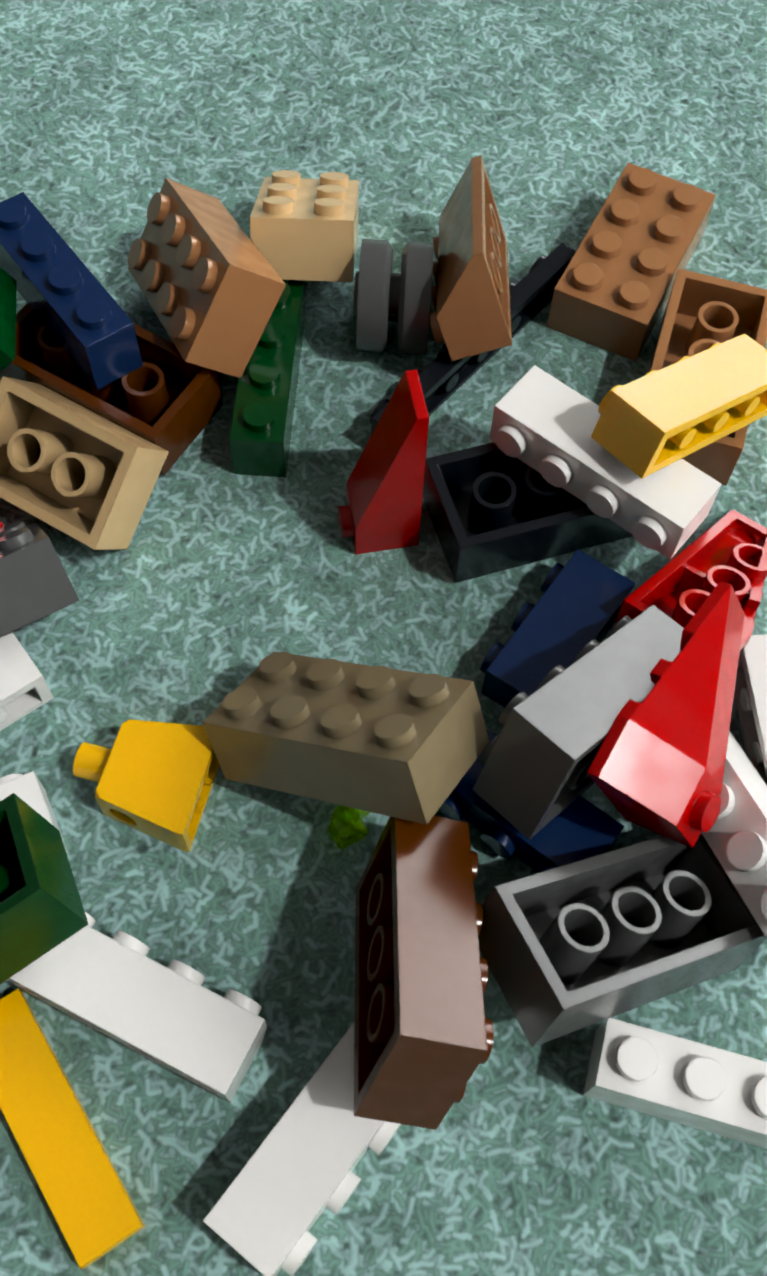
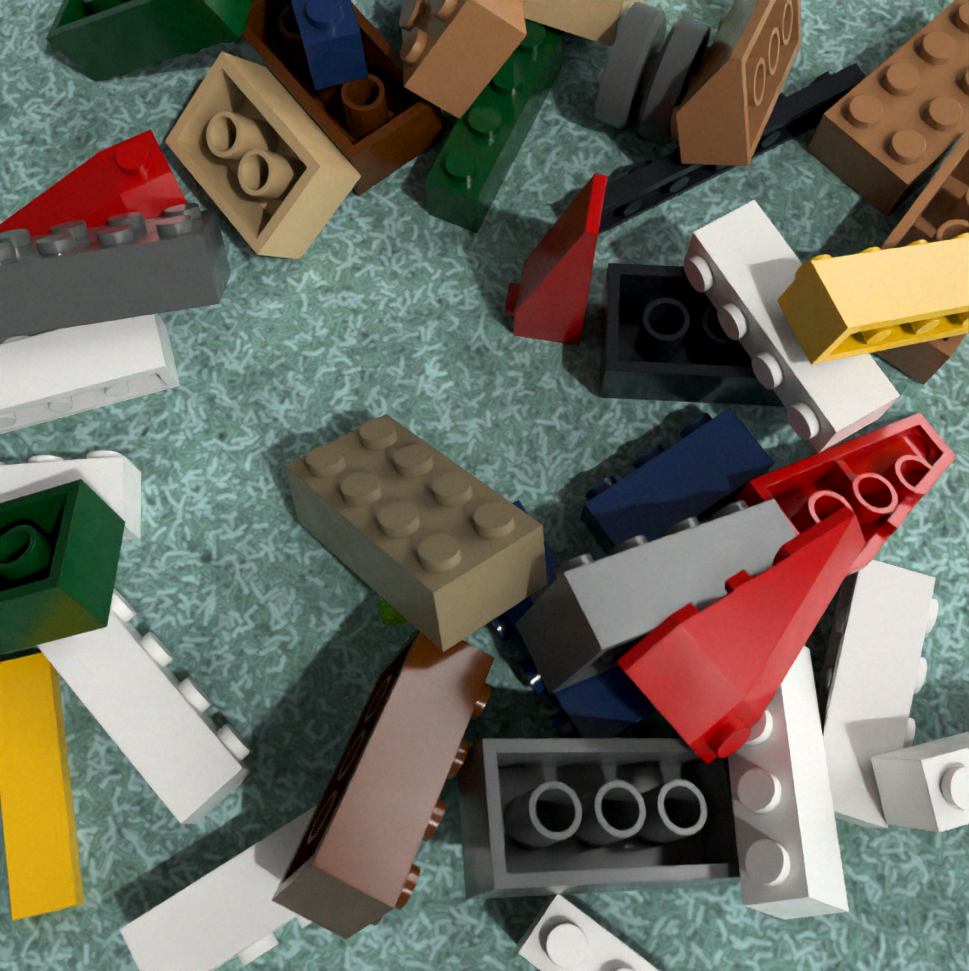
camera: 25 degrees right, 10 degrees up
(153, 778) = (233, 497): yellow torso -> none

